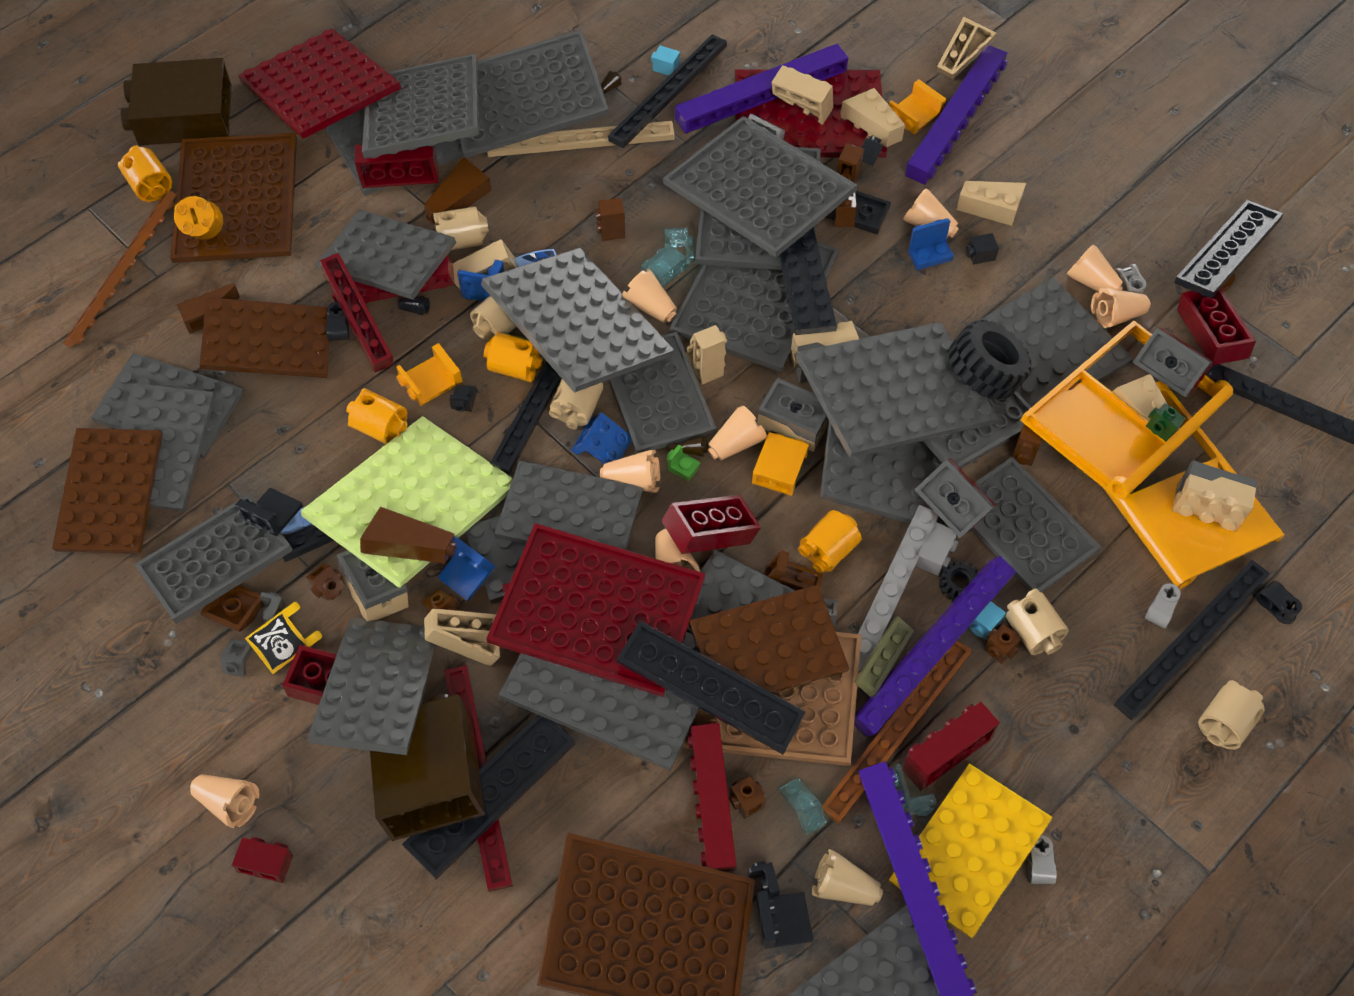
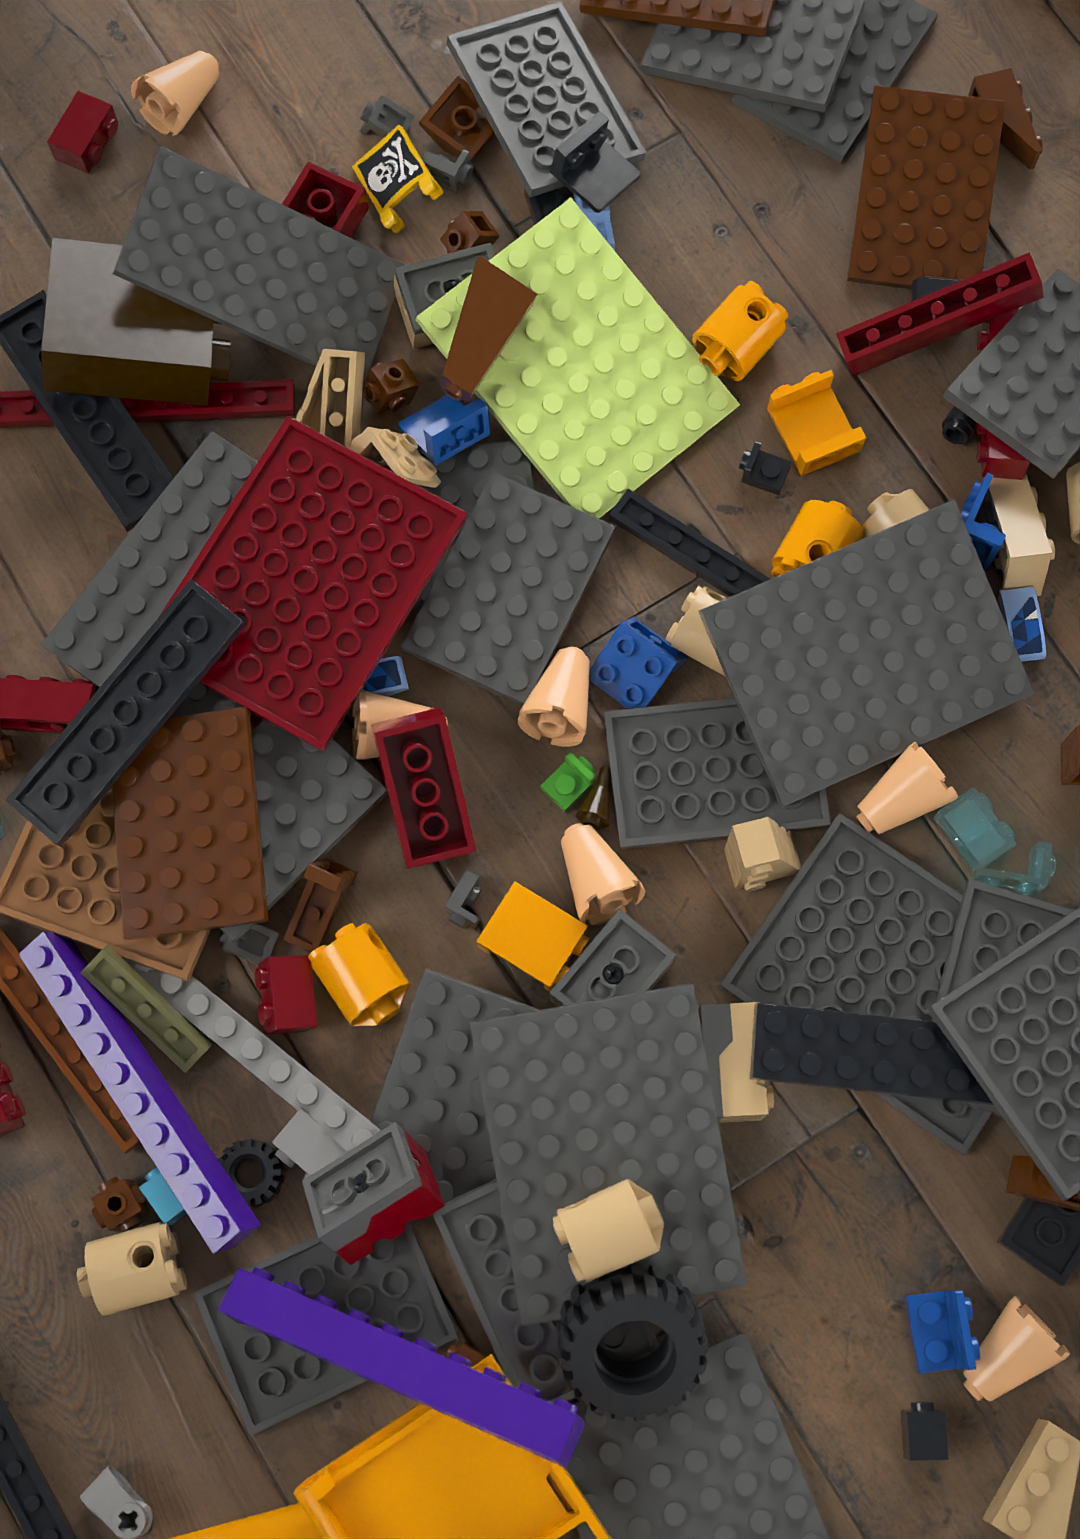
camera: 105 degrees right, 15 degrees up
(489, 598) = (398, 452): none -> tan bracket
(768, 504) = (464, 894): none -> dark grey bracket
(852, 580) = (286, 994): none -> dark red brick
(941, 368) = (609, 1230): none -> tan cylinder
(1043, 459) = (405, 1366): none -> dark purple brick

